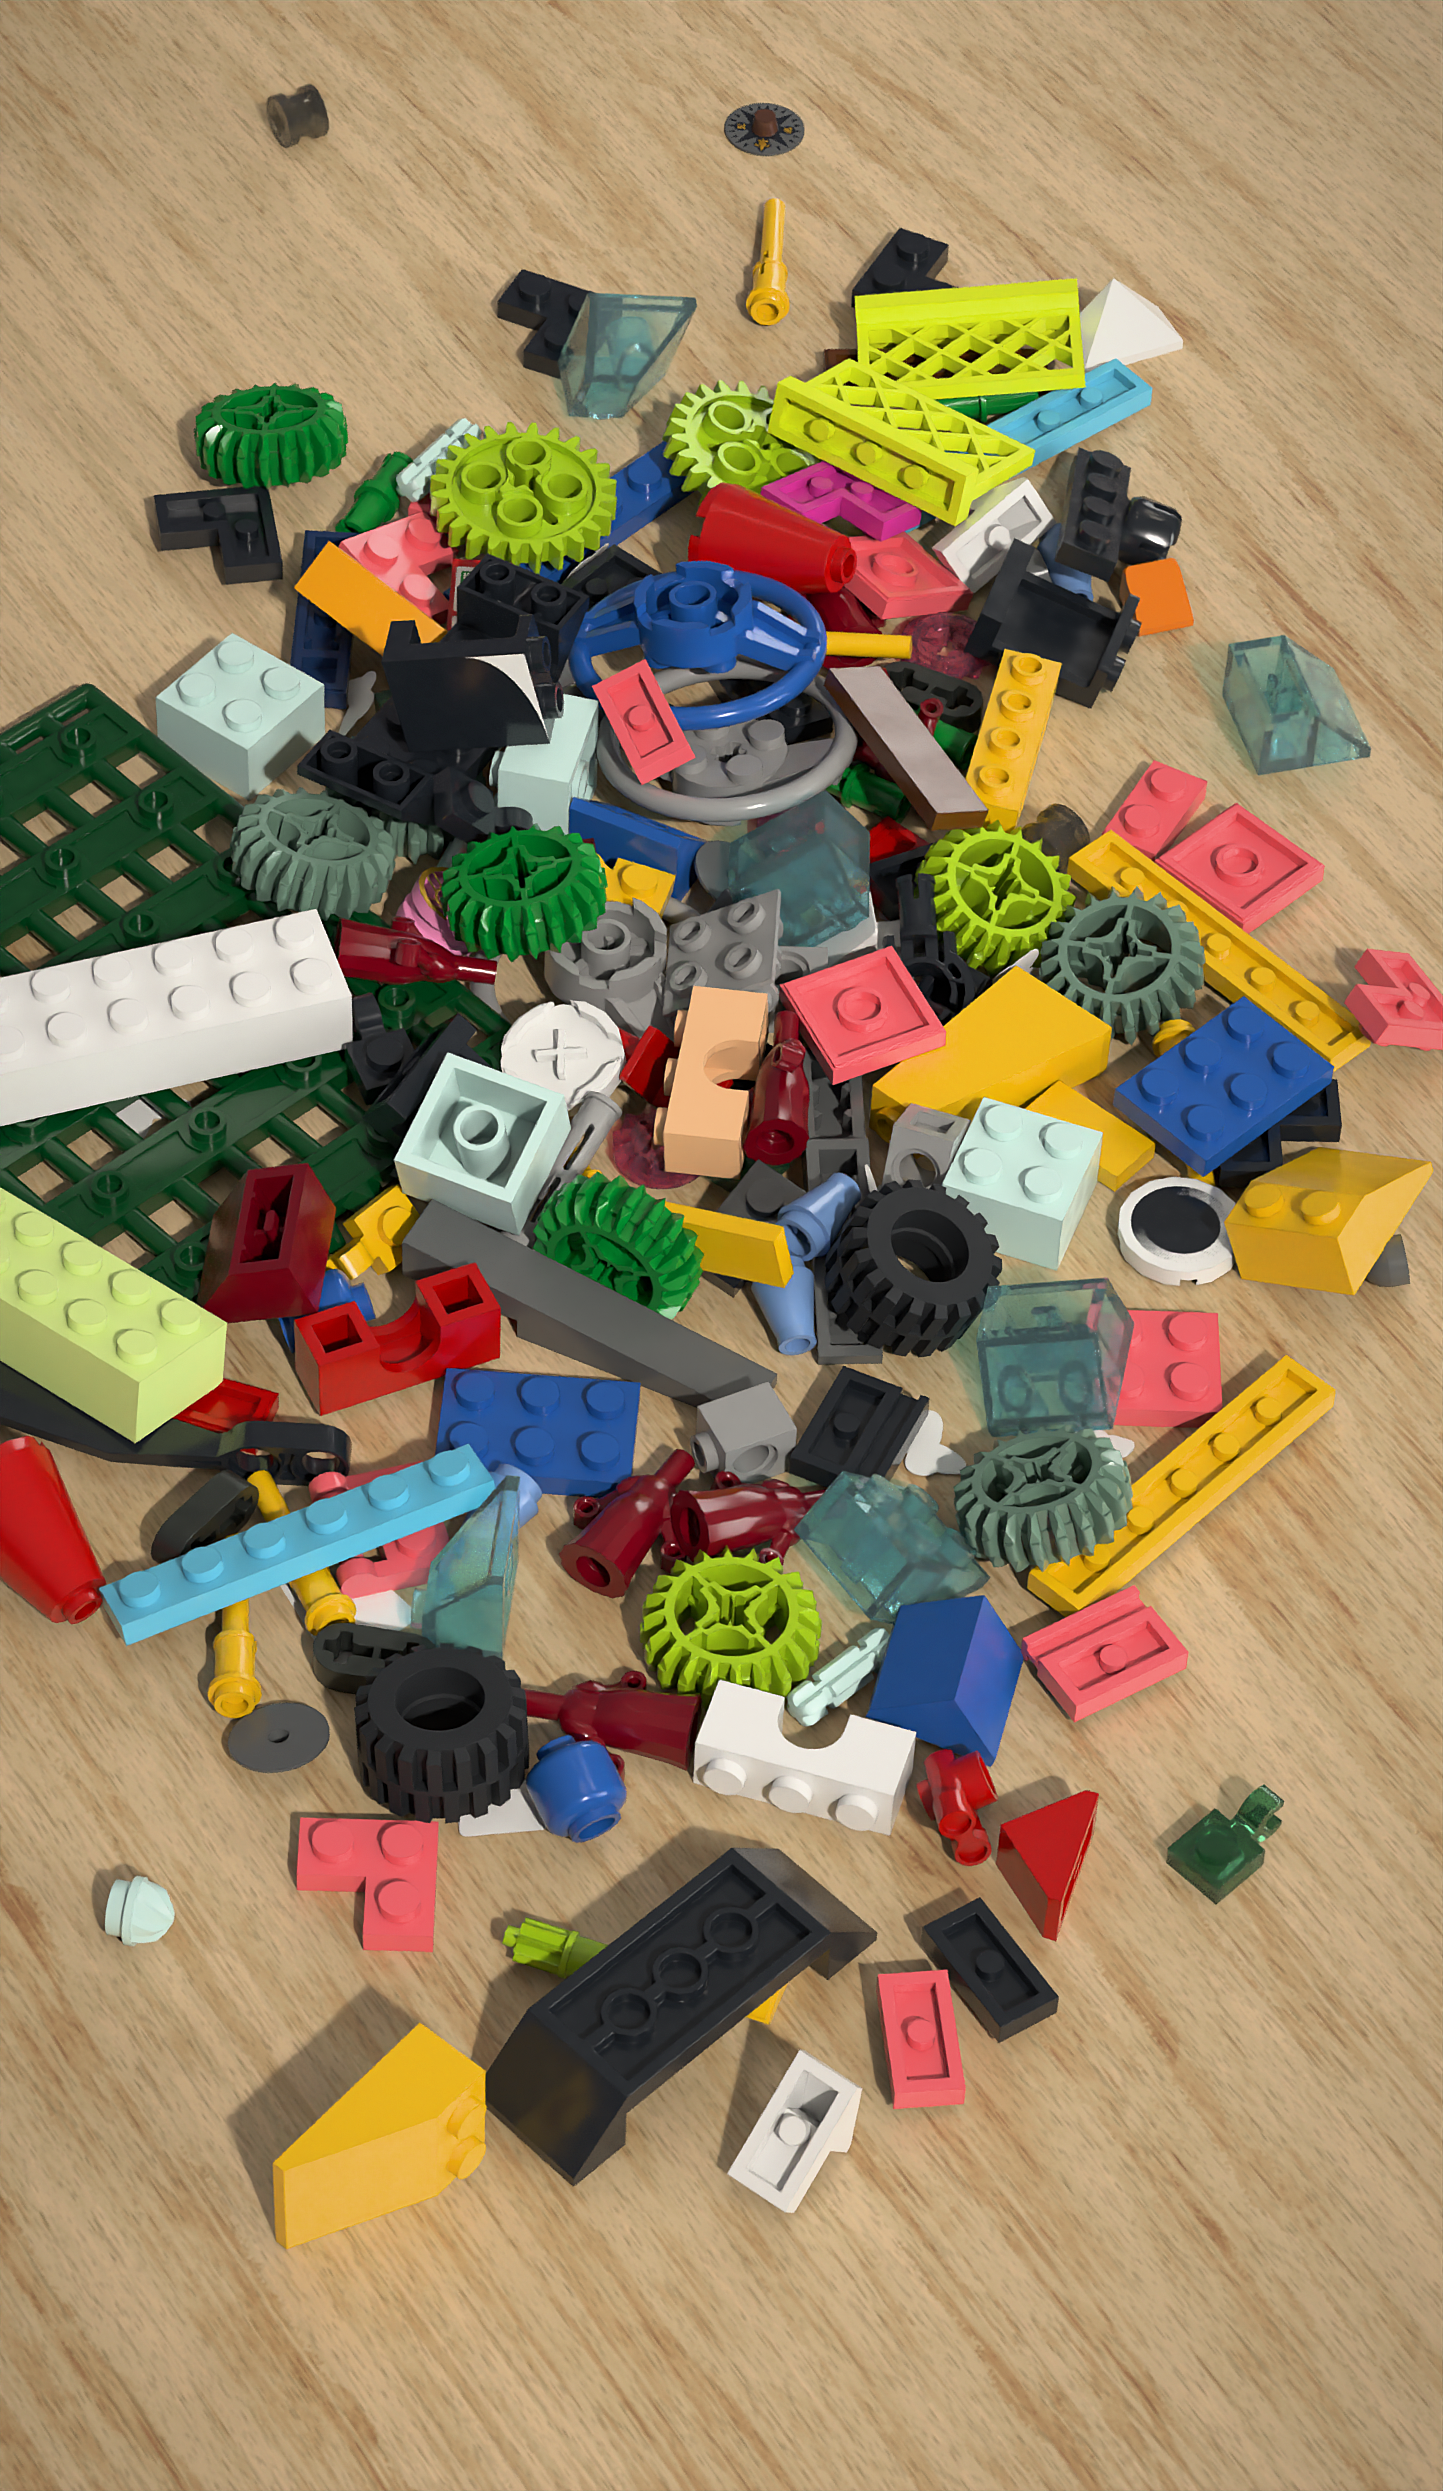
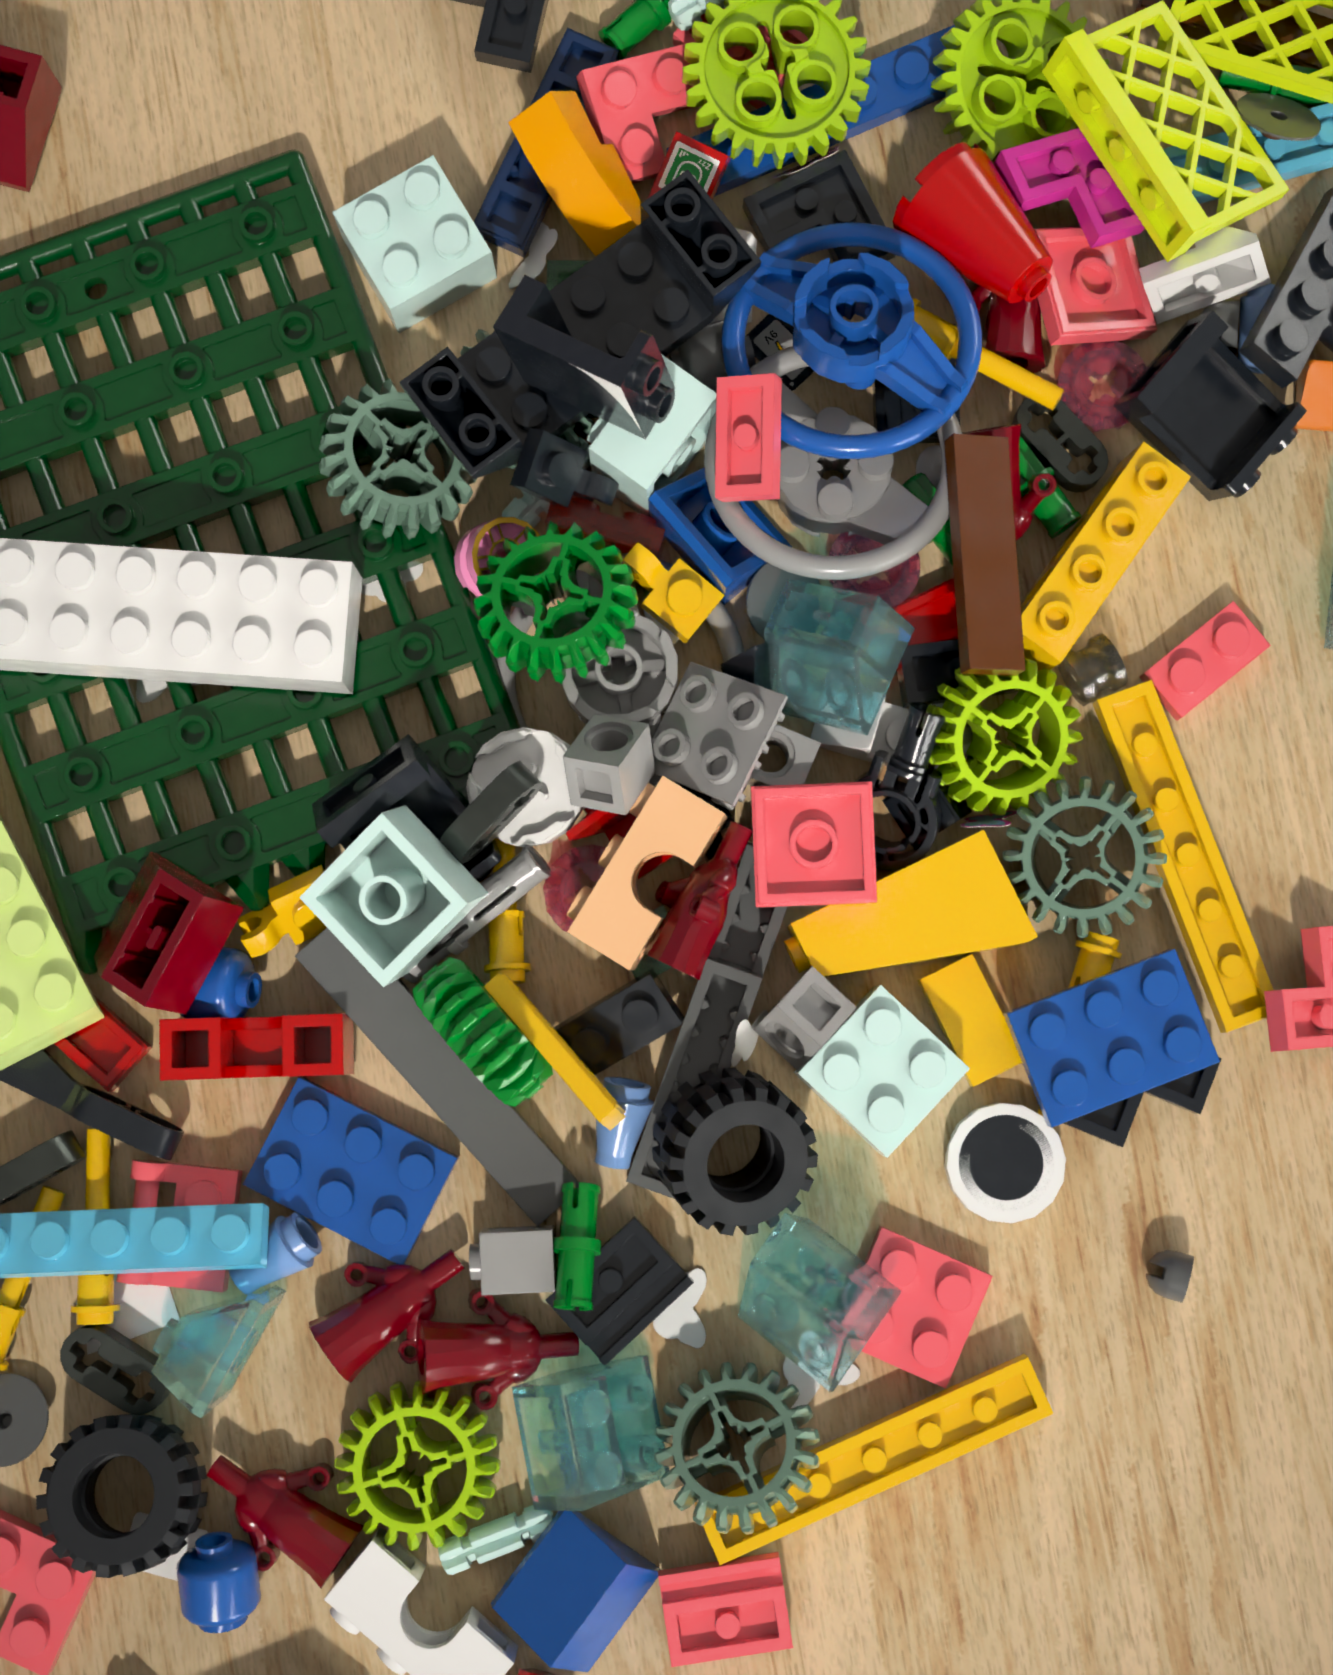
camera: 25 degrees right, 35 degrees up
(374, 1054) = (369, 723): black plate -> none
(403, 955) = (424, 611): dark red piece -> none
(549, 1050) = (491, 812): none -> pearl dark grey beam
(638, 992) = (609, 764): none -> light grey brick
(800, 1394) = (577, 1246): none -> green pin
(818, 1216) = (676, 1058): medium blue cone -> none
(998, 417) = (1278, 117): none -> dark grey piece
(1242, 867) = (1250, 764): coral plate -> none
(1322, 1218) = (1143, 1212): yellow slope -> none

